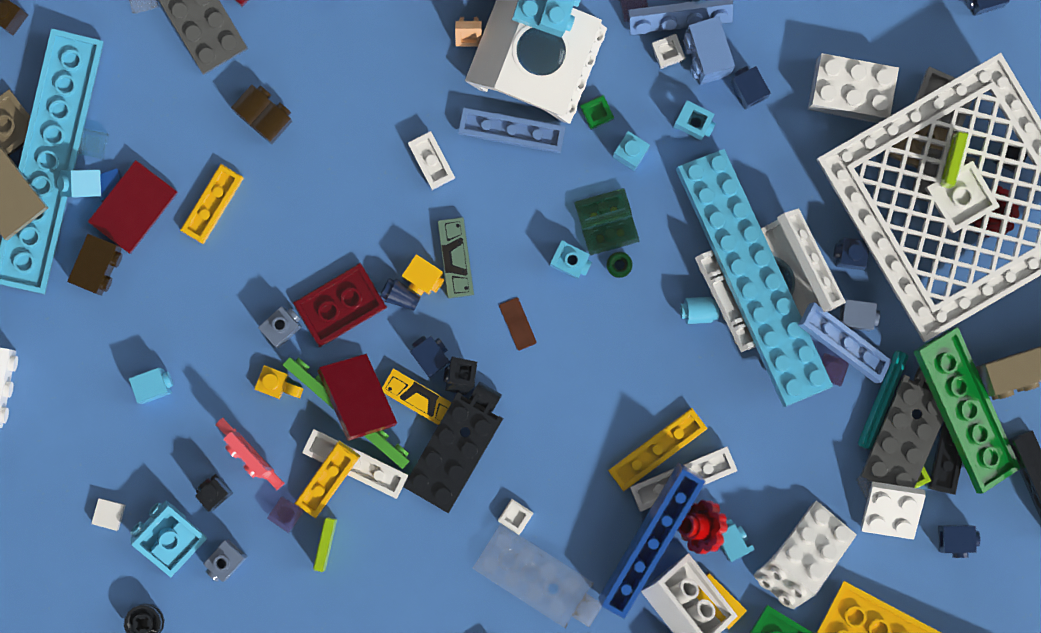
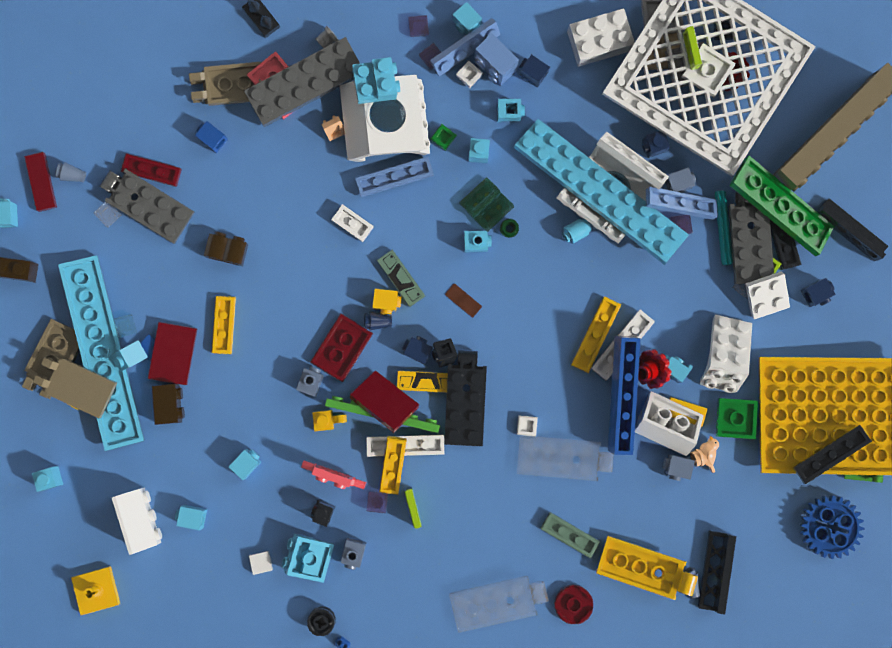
camera: 30 degrees left, 0 degrees up
(53, 415) = (190, 517): none -> medium azure brick

